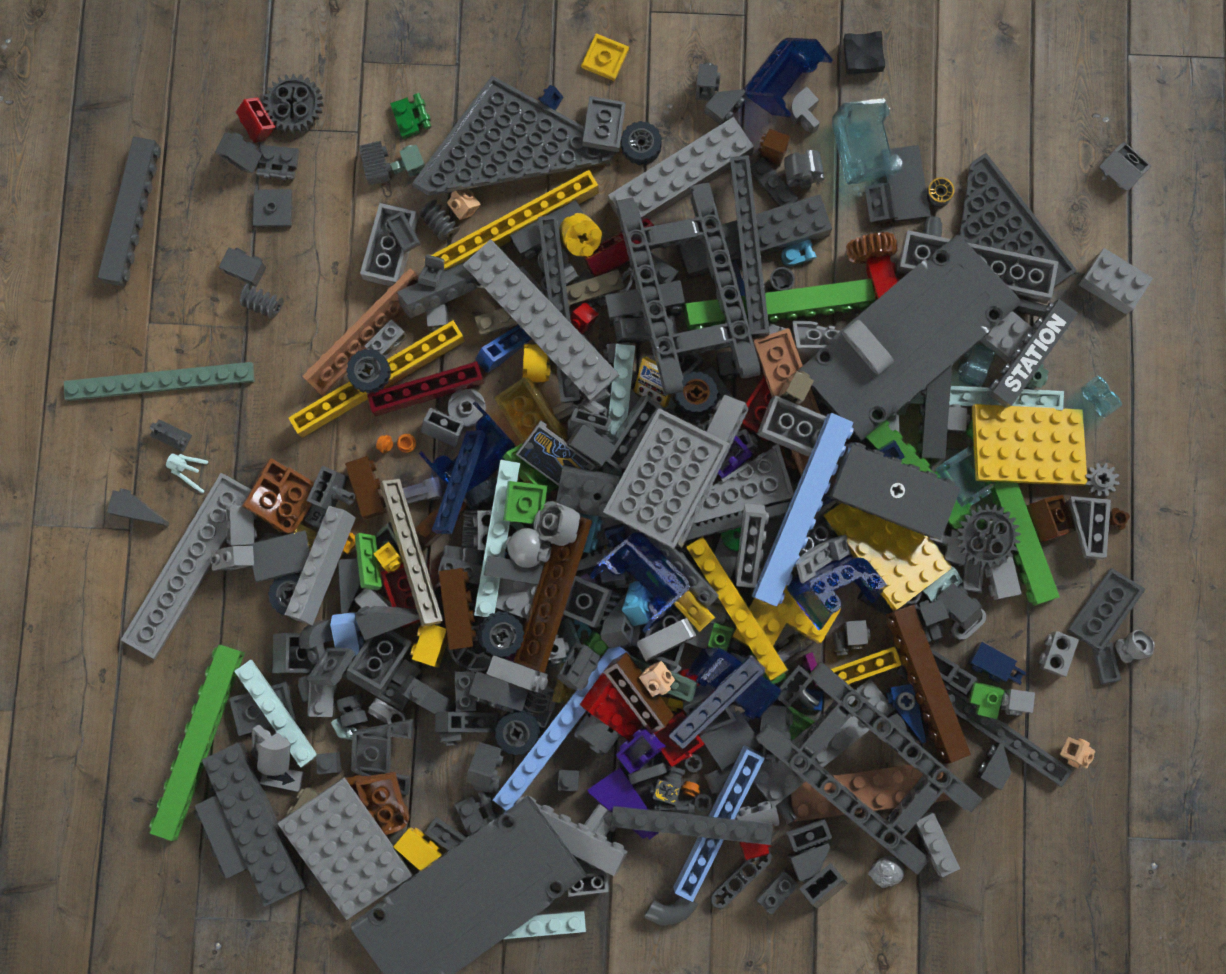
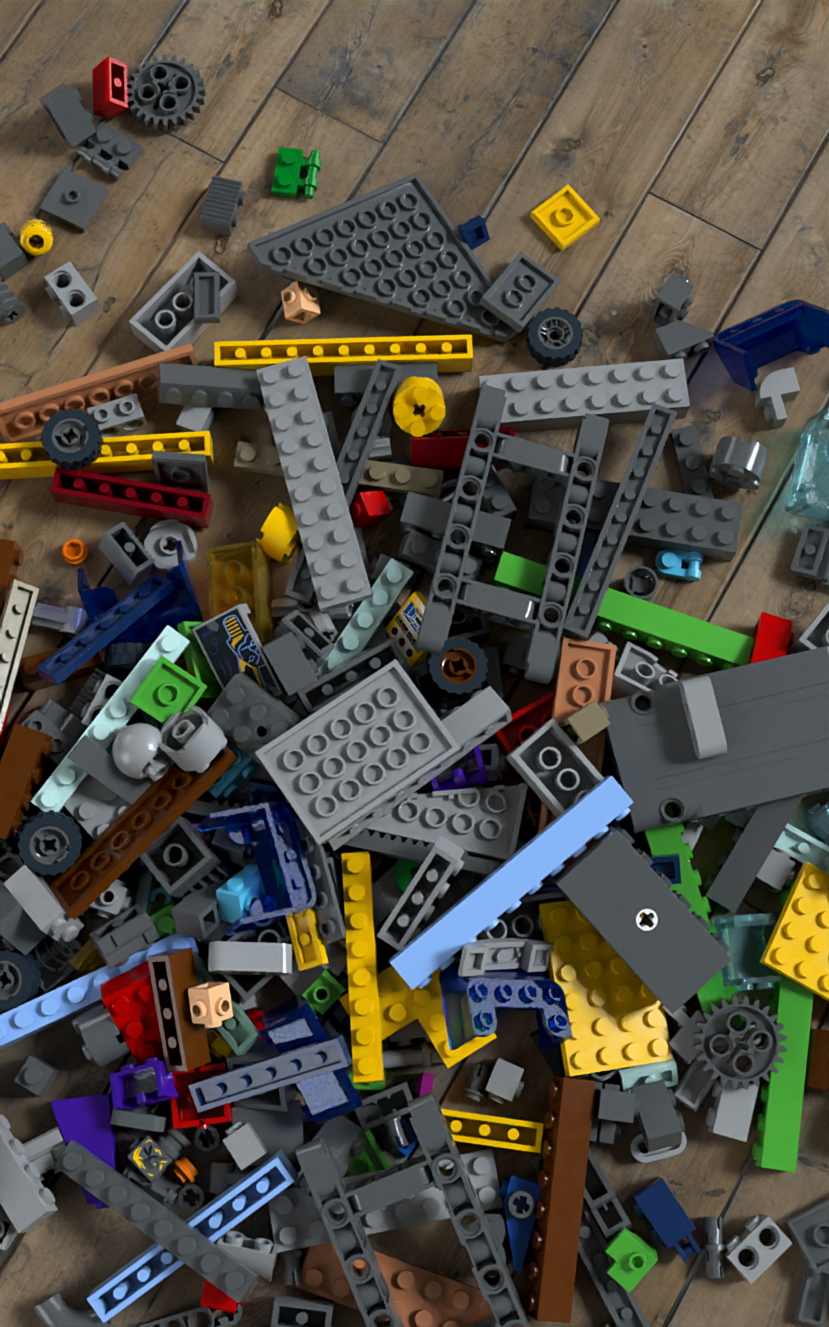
camera: 20 degrees right, 5 degrees down
(263, 247) = (36, 237): none -> yellow head
(311, 270) = (75, 292): none -> light grey brick
(384, 443) = (47, 539): orange plate -> none
(410, 160) = (267, 220): sand green brick -> none
(432, 271) = (214, 360): dark grey bracket -> none
(437, 221) = (259, 308): dark grey piece -> none
(448, 356) = (181, 470): none -> dark grey plate
(502, 348) = (249, 496): blue slope -> none
(720, 753) = (244, 1144): none -> light grey brick
(774, 146) = (715, 418): reddish brown brick -> none
(871, 246) = (774, 598): dark orange gear -> none
(1017, 702) = (668, 1284): light grey brick -> none
(1032, 666) = (713, 1247): none -> dark grey pin

